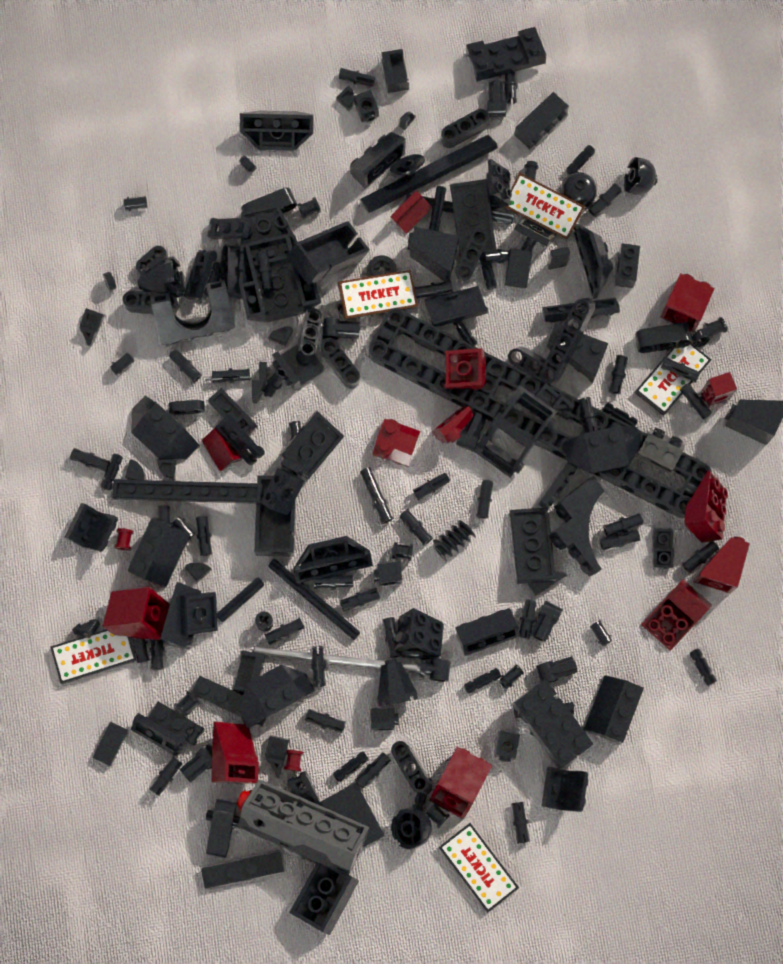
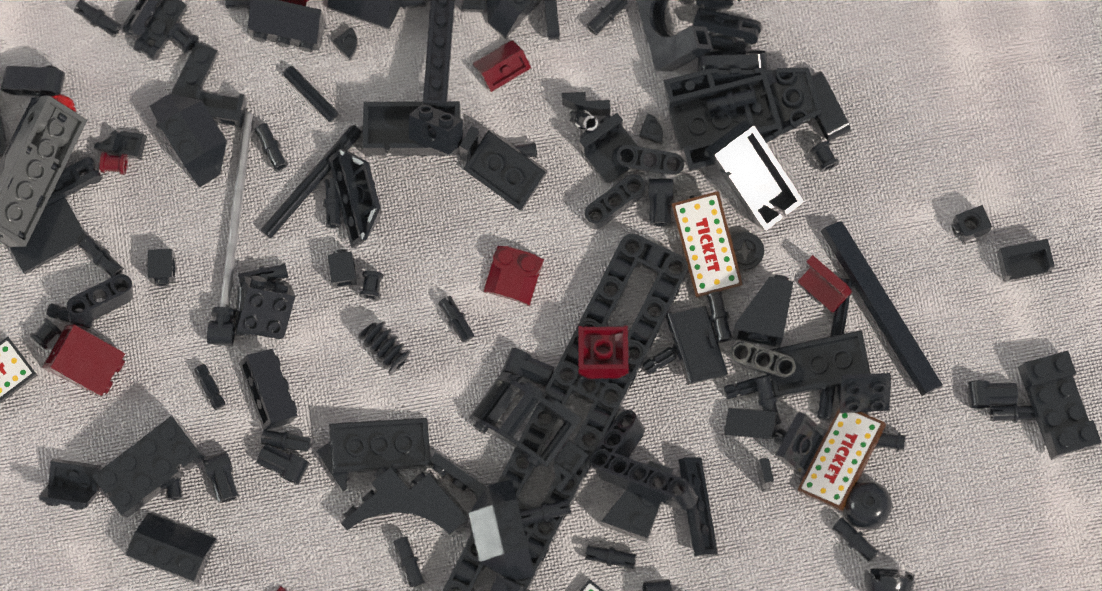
camera: 95 degrees right, 0 degrees up
(180, 523) = (400, 21): black pin -> none
(198, 764) = (114, 59): black piece -> none
(199, 613) = (289, 42): black tile -> none
(204, 536) = (374, 50): black pin -> none
(226, 405) = (546, 72): black plate -> none
(229, 228) = (787, 55): black plate -> none
(231, 375) = (595, 70): black pin -> none
(233, 755) = (118, 90): dark red slope -> none
(239, 440) = (508, 81): black plate -> none
(247, 164) = (881, 76): black tile -> none
(265, 615) = (283, 115): black bush -> none
(276, 129) = (932, 108): black wedge -> none
(318, 666) = (226, 187): black pin -> none
(325, 721) = (161, 199): black pin -> none
(346, 98) = (985, 198): black tile -> none
(350, 766) = (106, 231): black axle -> none
(356, 77) = (1014, 211): black axle -> none
(359, 599) = (310, 235): black pin -> none
(378, 158) = (896, 239): black slope -> none
(384, 515) = (442, 252): black pin -> none
(394, 684) = (198, 276): black cone -> none
(406, 120) = (957, 277): black tile -> none
(407, 165) = (889, 277): black dish -> none
(411, 828) = (28, 301): black cylinder -> none
(416, 527) = (402, 301): black pin -> none
(437, 208) = (823, 317): black axle -> none
(449, 429) = (528, 337): dark red slope -> none
(459, 135) = (947, 340): black beam -> none
(484, 499) = (440, 386): black axle -> none
(511, 676) = (214, 422): black pin -> none
(513, 739) = (136, 421): black brick -> none
(520, 822) = (35, 434): black pin -> none
(541, 120) = (964, 454): black brick -> none
(580, 160) = (912, 508): black axle -> none
(594, 258) = (768, 525): black wedge -> none
(601, 633) = (268, 533): black pin -> none
(619, 414) = (555, 559): black axle -> none
(619, 539) = (389, 557): black pin -> none
(627, 265) = (761, 568): black brick -> none

